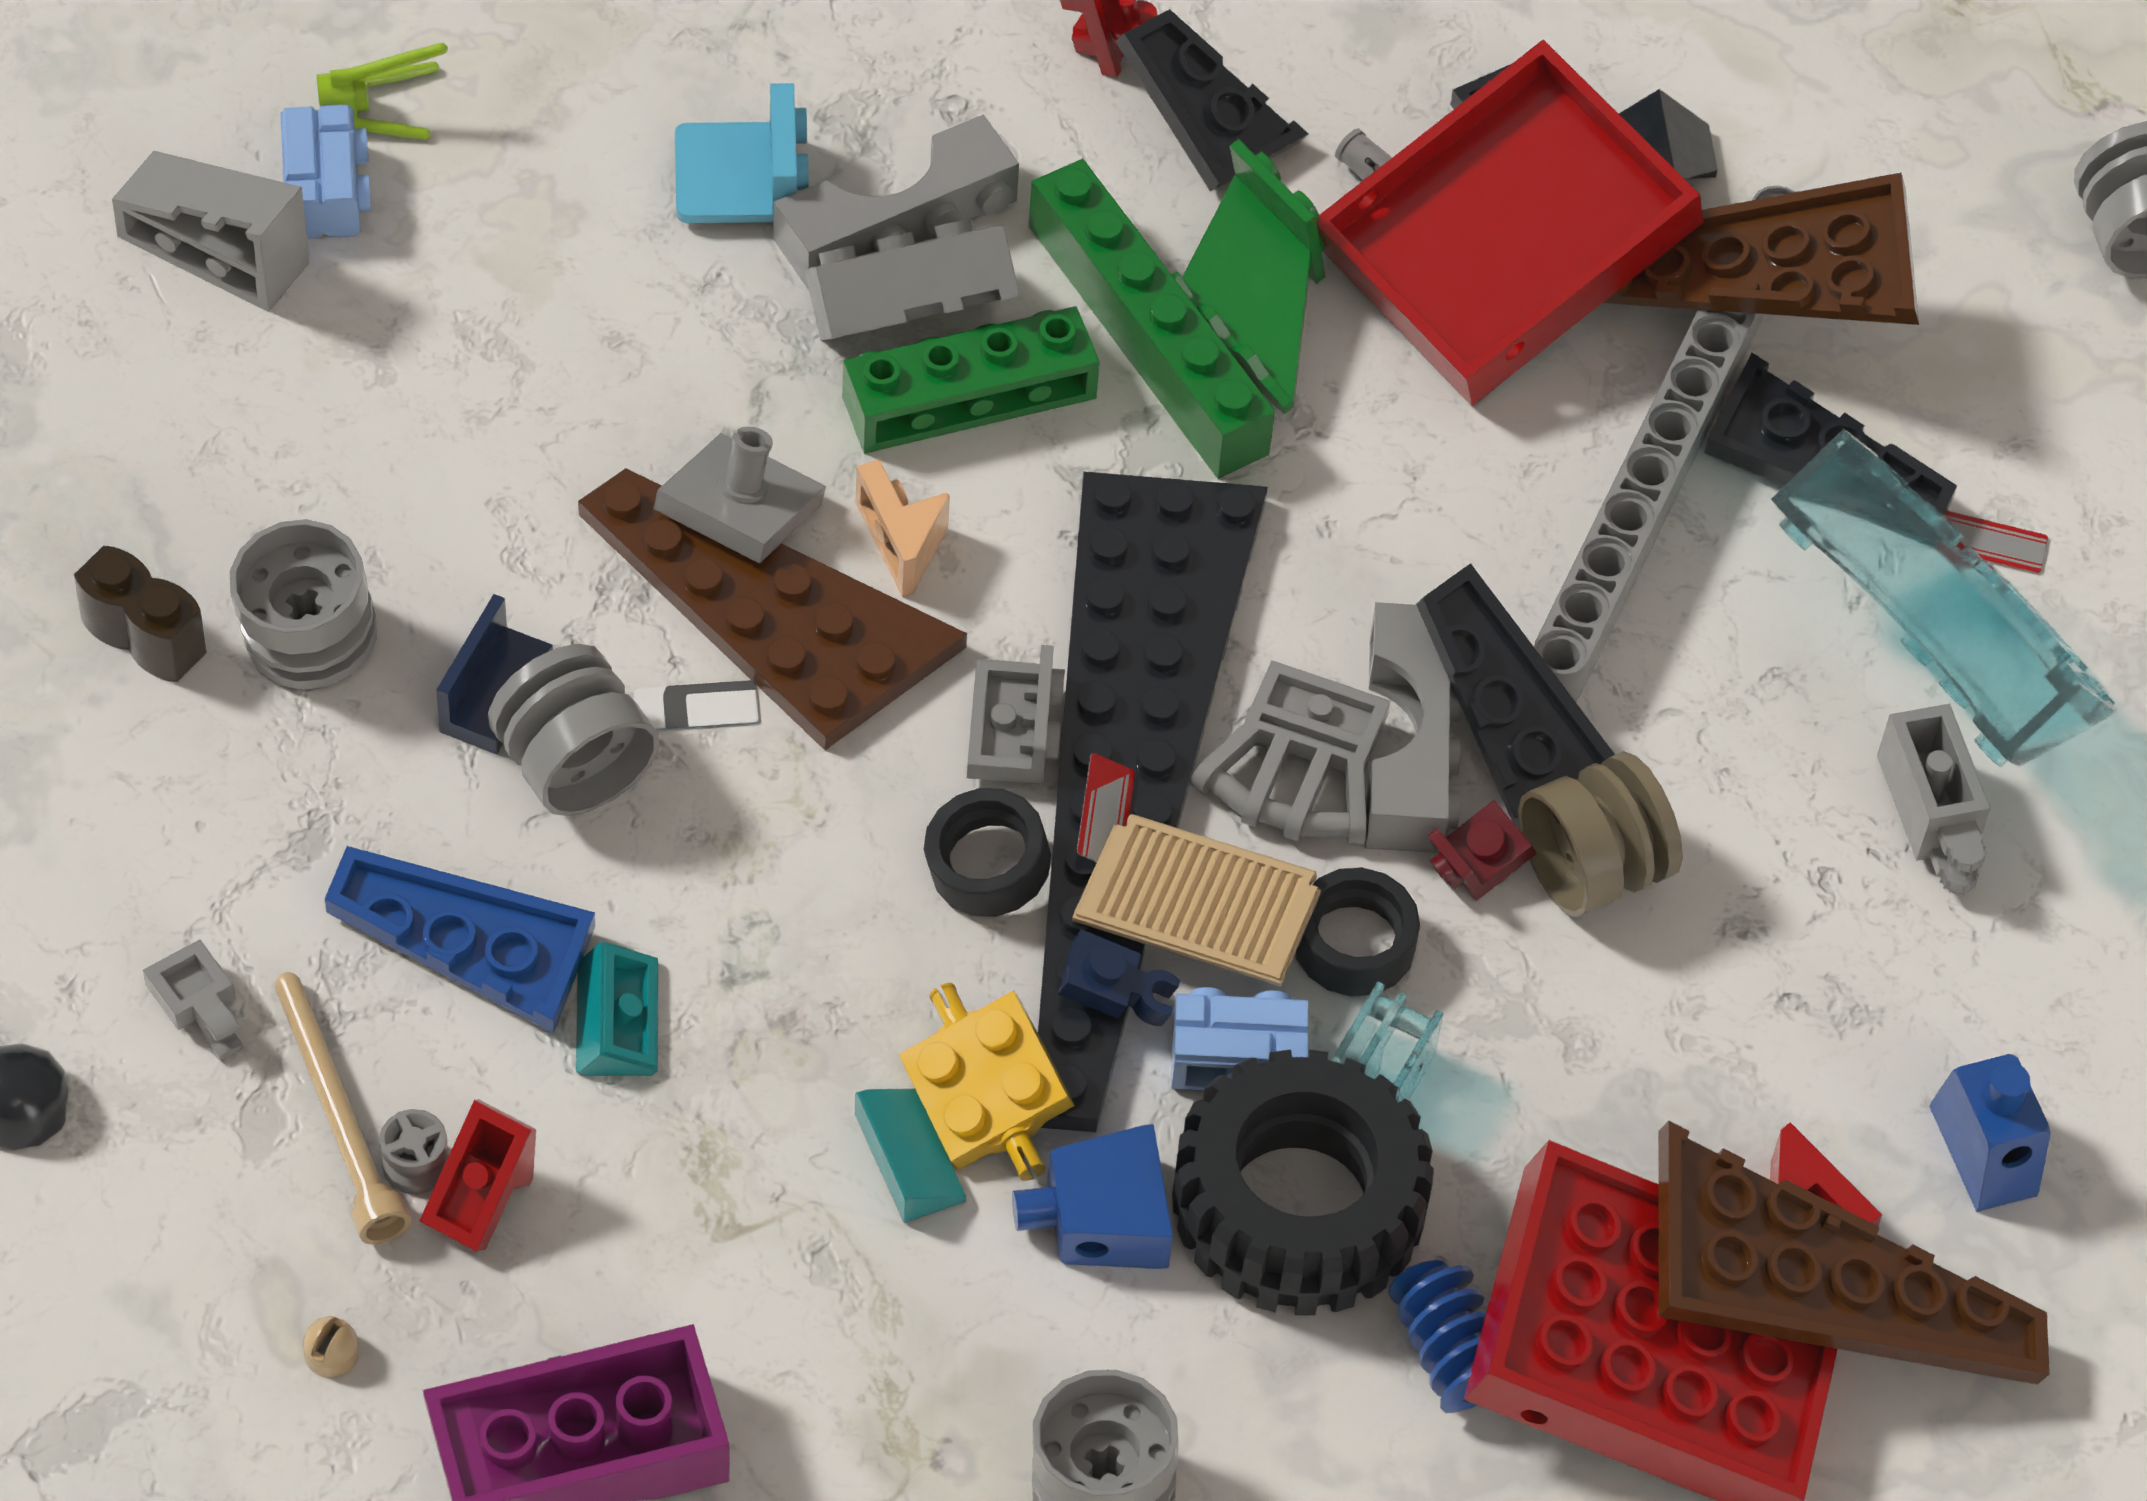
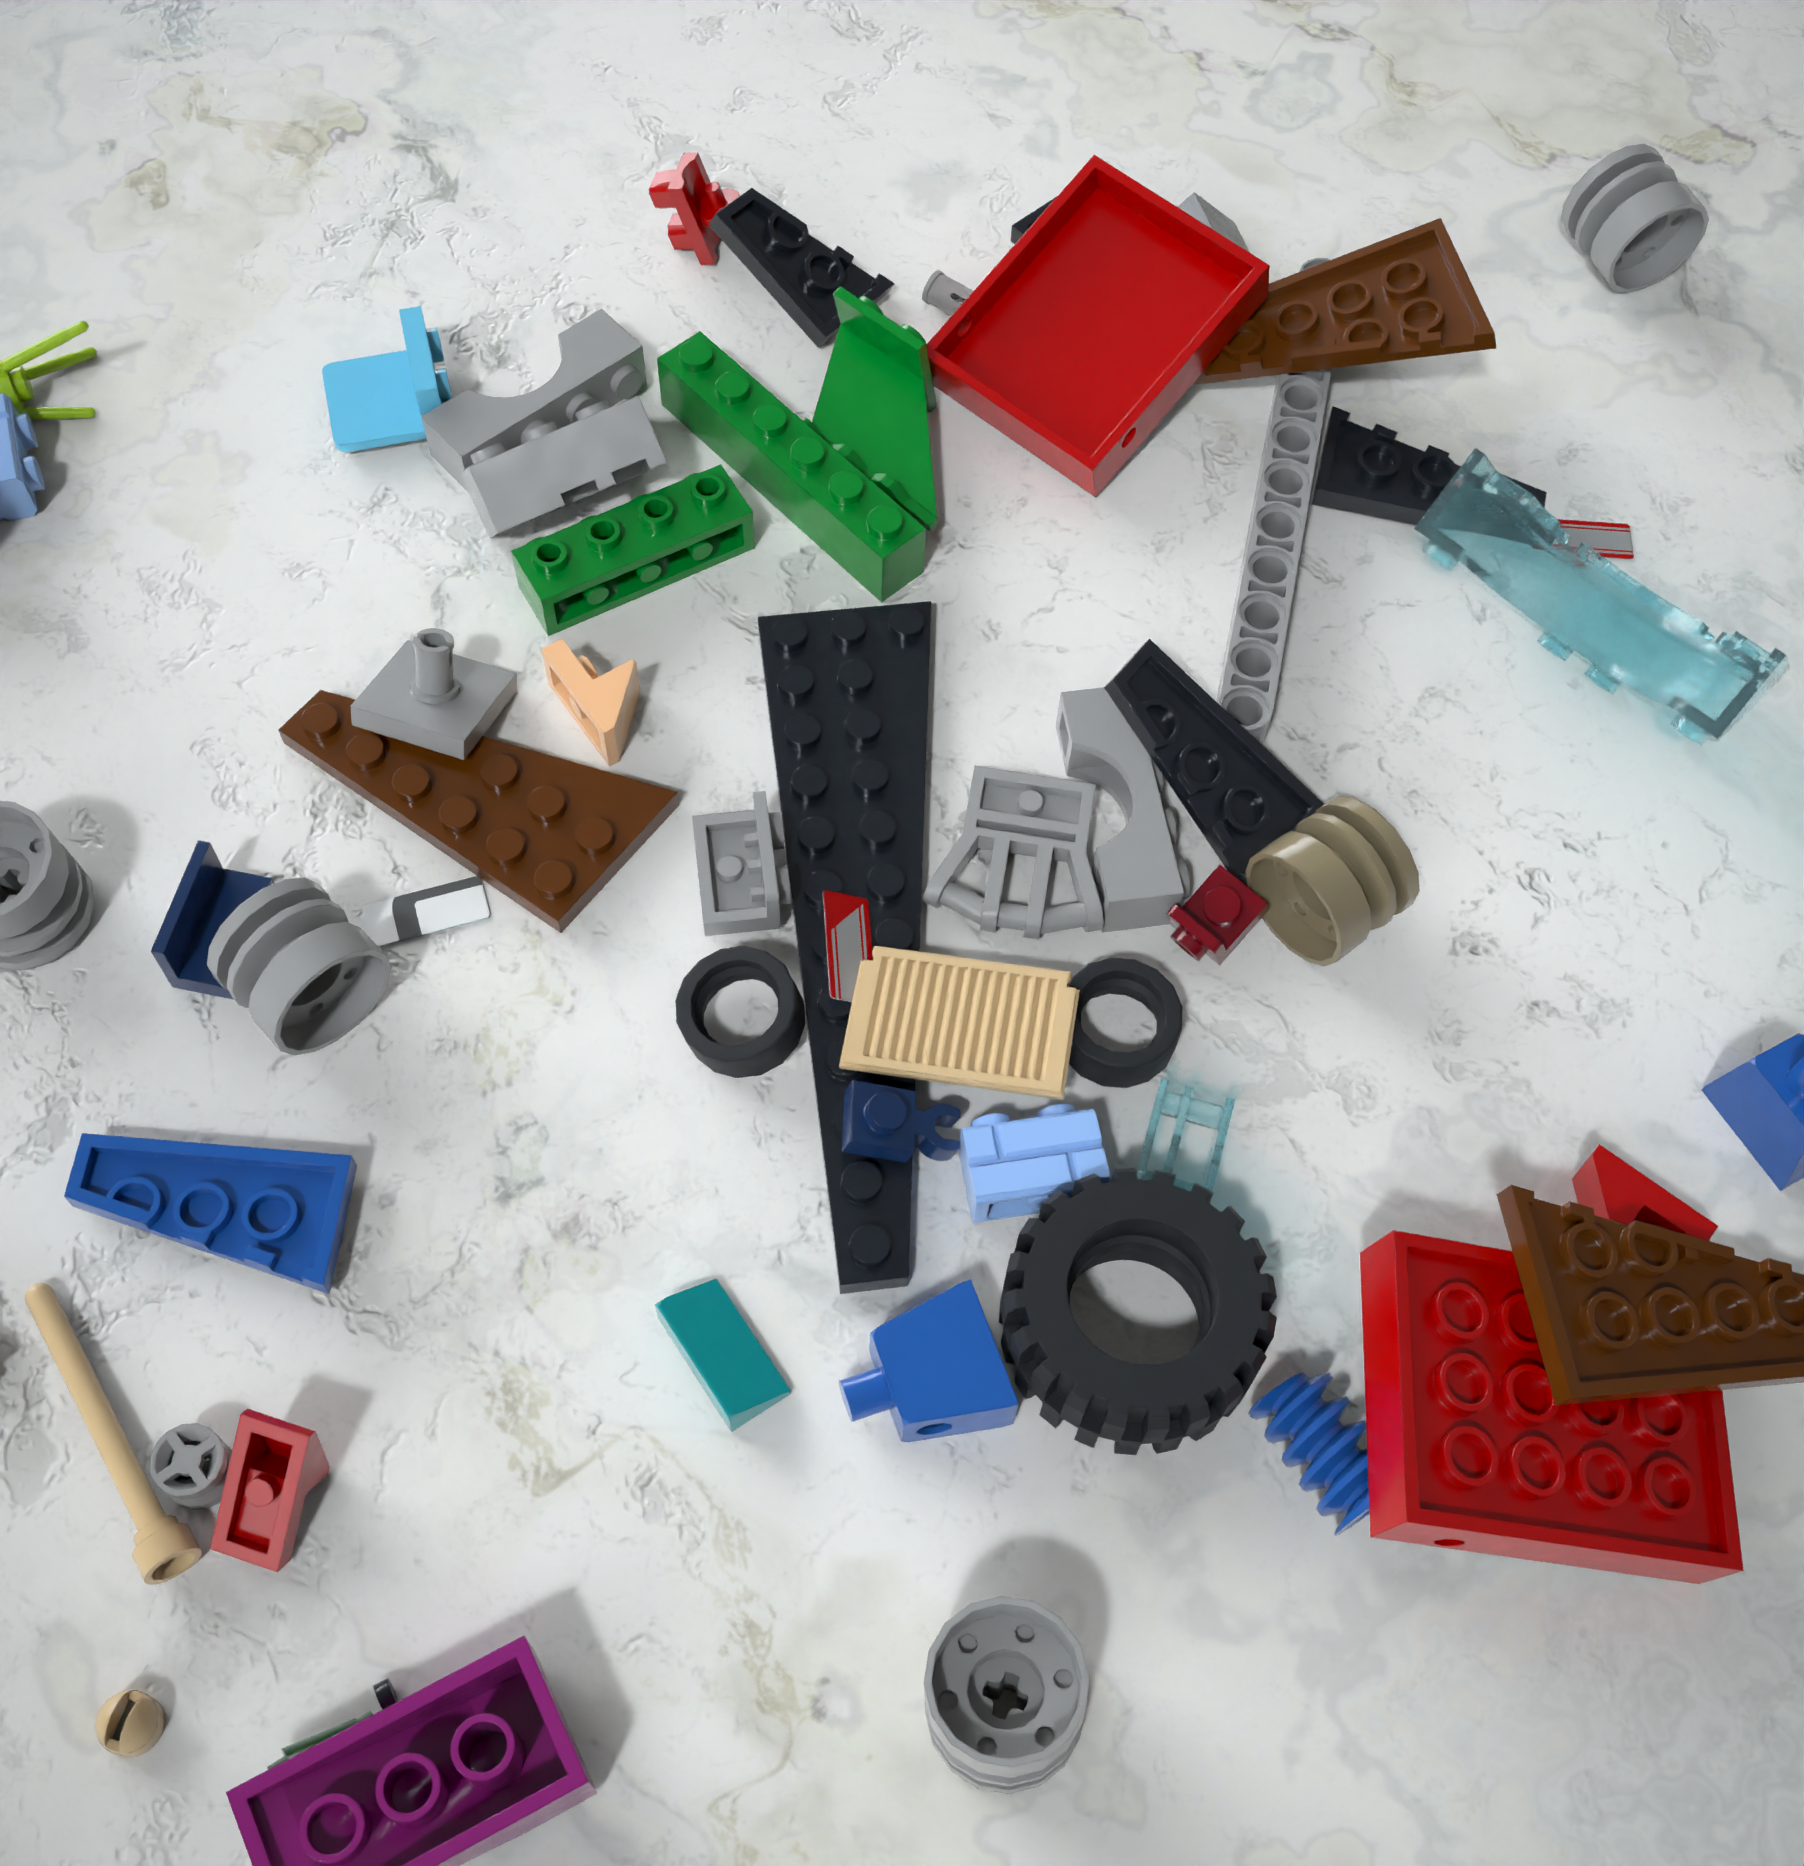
camera: 10 degrees left, 5 degrees up
(617, 1013) = (394, 1257): teal slope -> none
(986, 1081) = (787, 1260): yellow plate -> none
(1936, 792) = (1626, 780): light grey hinge -> none

